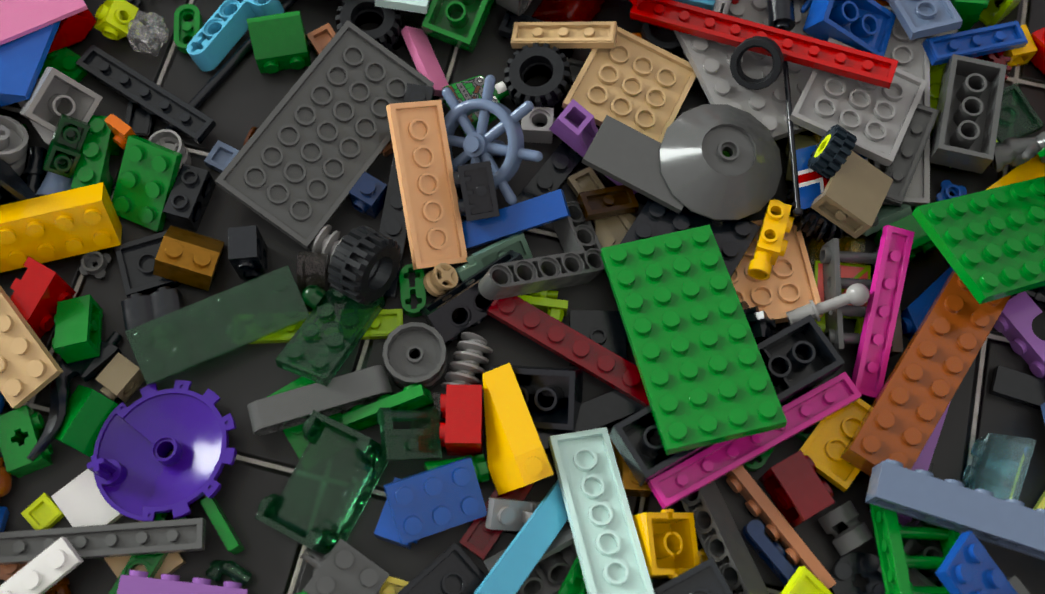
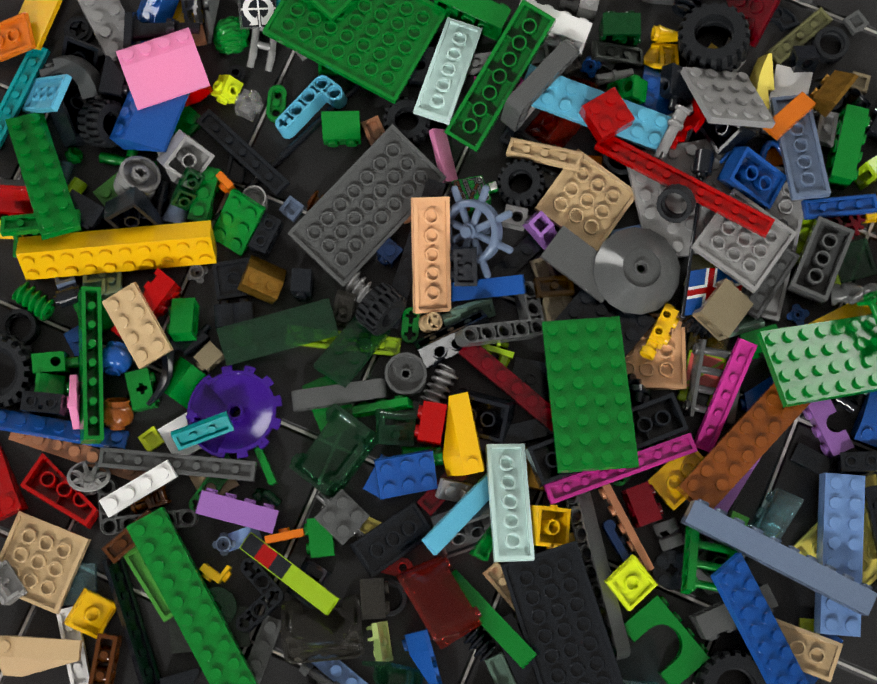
camera: 10 degrees right, 10 degrees up
(115, 484) = (202, 431): none -> teal plate
(312, 295) = (343, 321): dark green hinge -> none
(832, 151) = (713, 279): black wheel -> none
(856, 295) = (708, 382): light grey pin -> none

